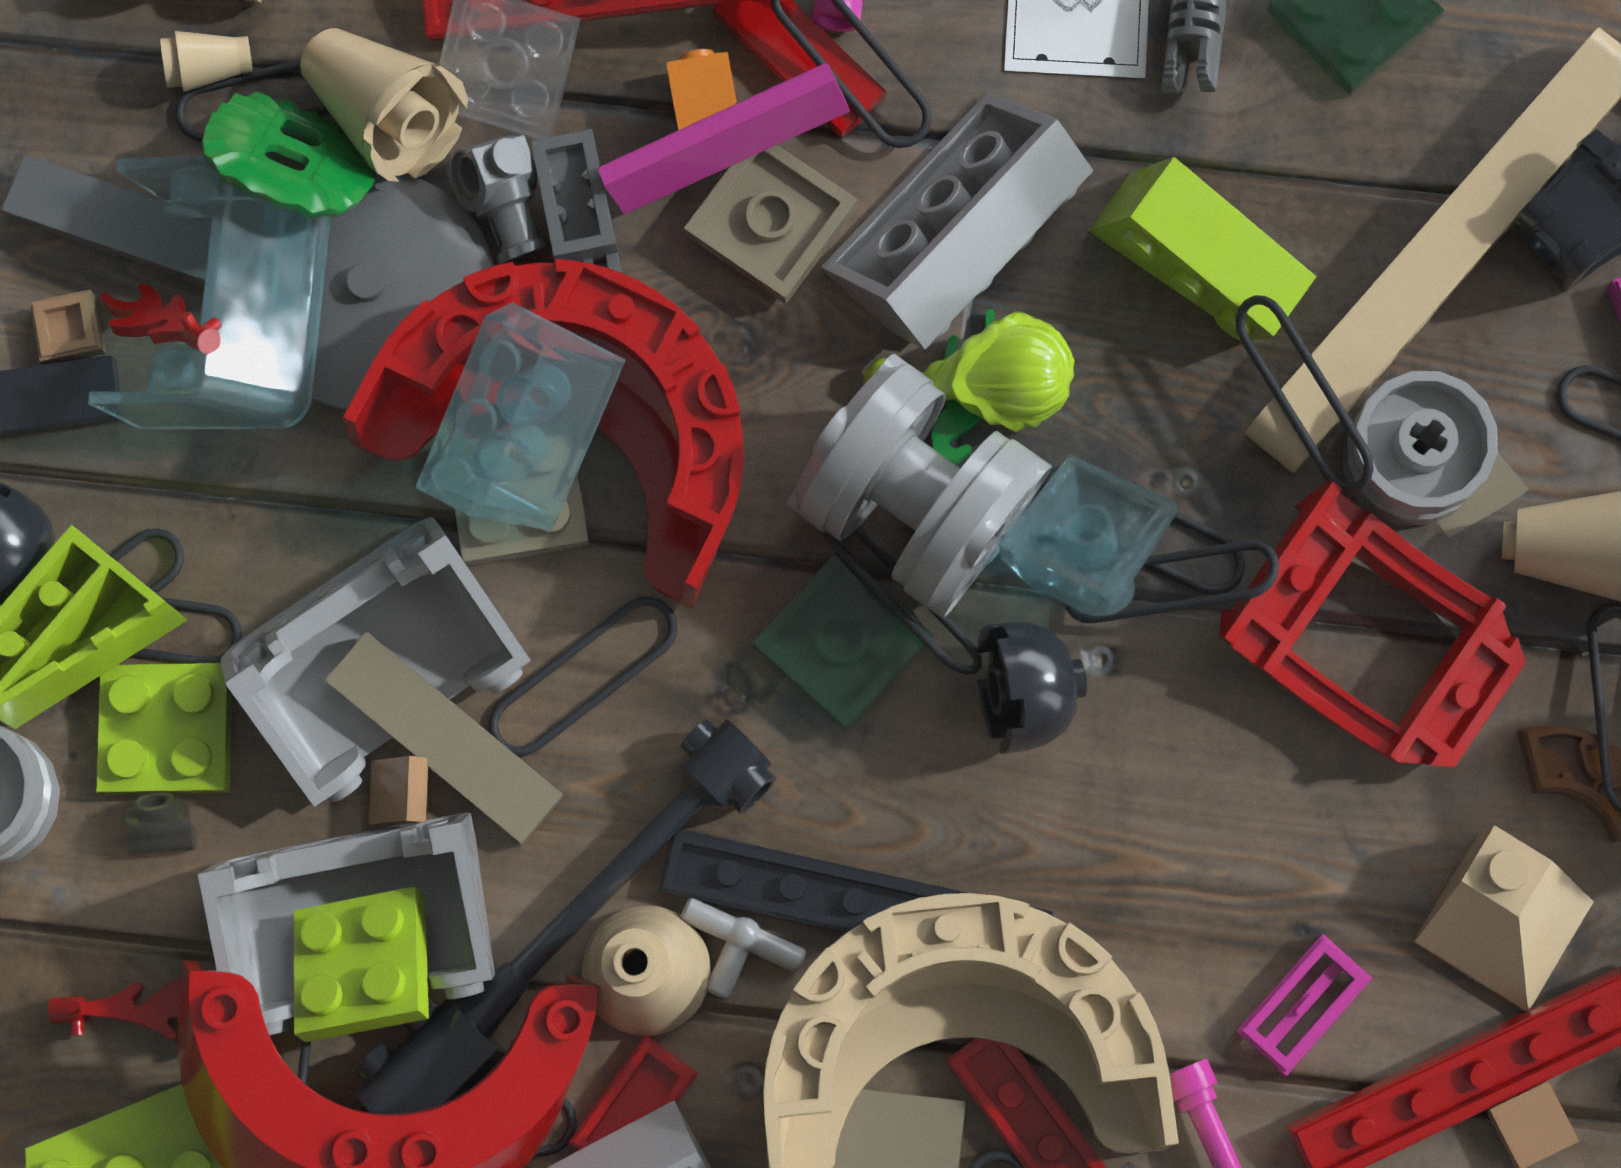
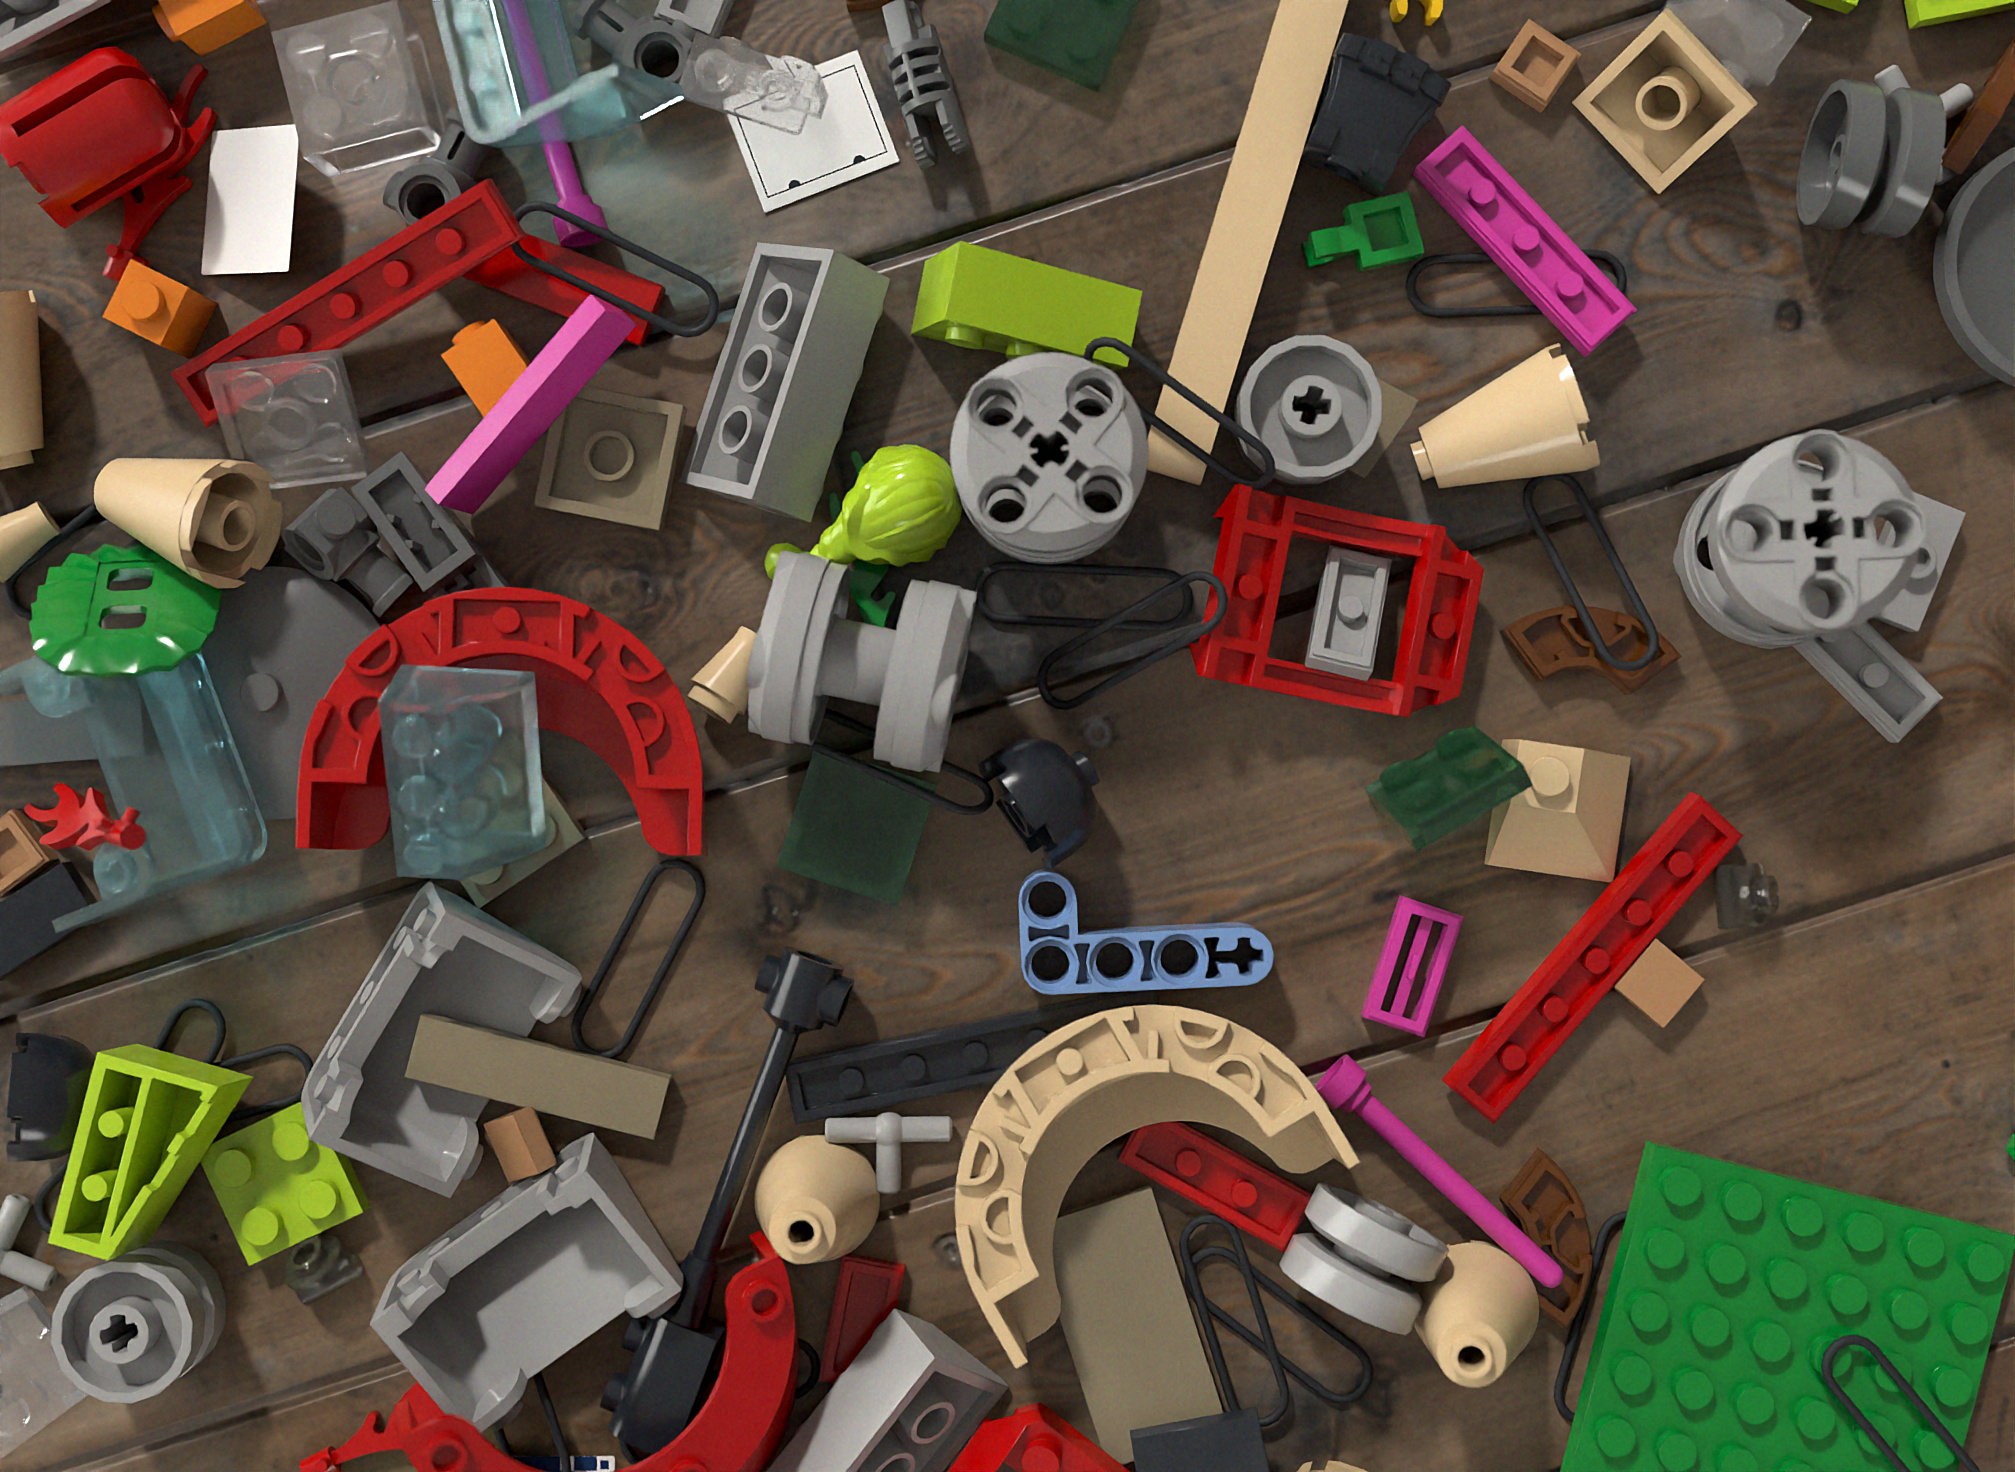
camera: 30 degrees left, 10 degrees up
(360, 964) = (558, 1322): lime plate -> none
(780, 458) = (722, 683): none -> tan cone
(1059, 864) = (1145, 946): none -> medium blue beam
(1087, 537) = (1037, 633): clear light blue slope -> none
(1168, 380) = (1095, 455): none -> light grey piece
(1382, 647) = (1348, 613): none -> light grey plate
(1408, 841) = (1447, 786): none -> clear green plate
(1550, 321) = (1374, 232): none -> green plate

